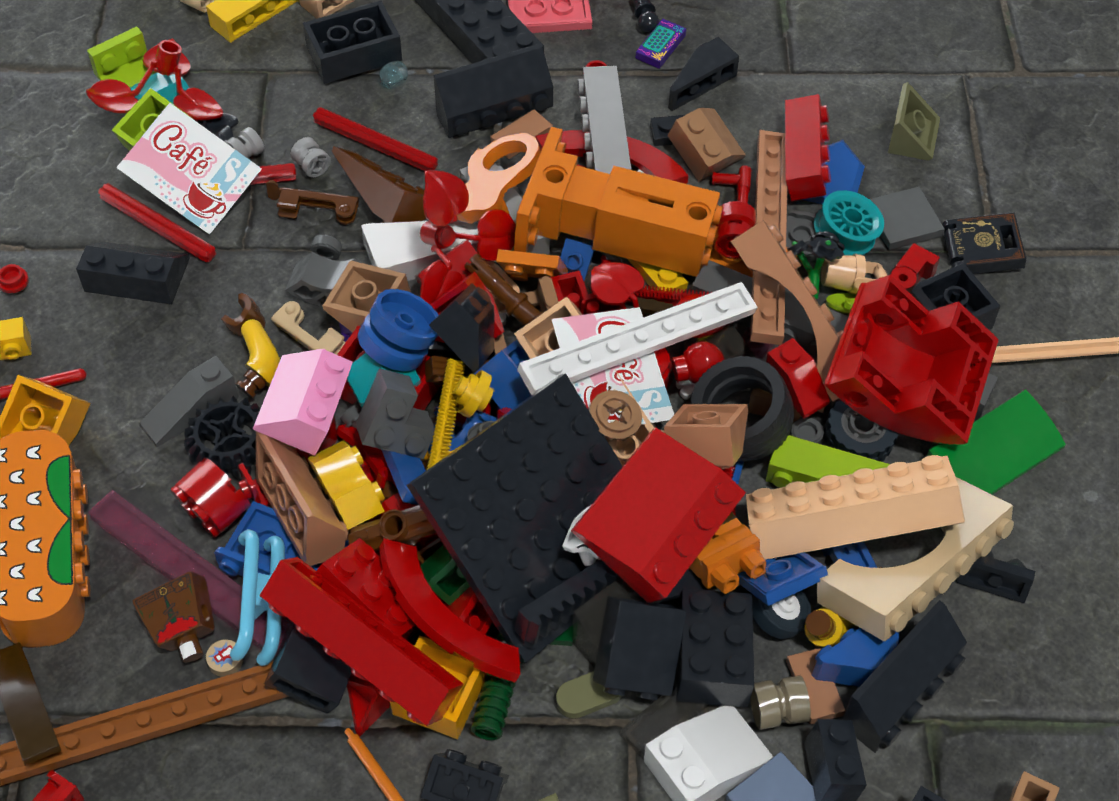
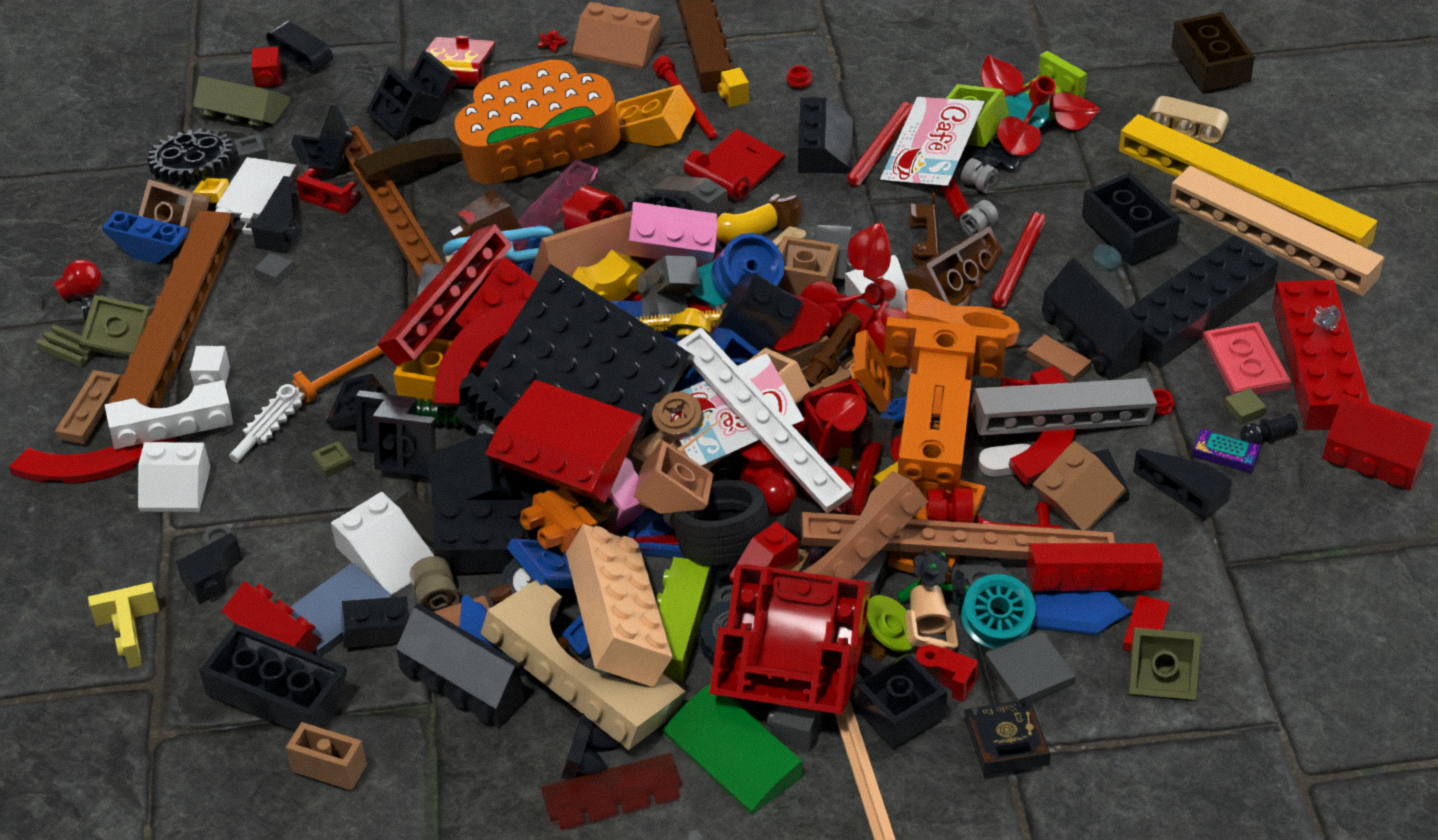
camera: 85 degrees right, 10 degrees down
(147, 356) = (735, 164): none -> red door
(550, 725) = (394, 432): none -> black bracket
(608, 20) = (1245, 405): none -> olive tile
(860, 132) = (1148, 614): none -> red tile
(1039, 550) = (602, 790): none -> clear red windscreen

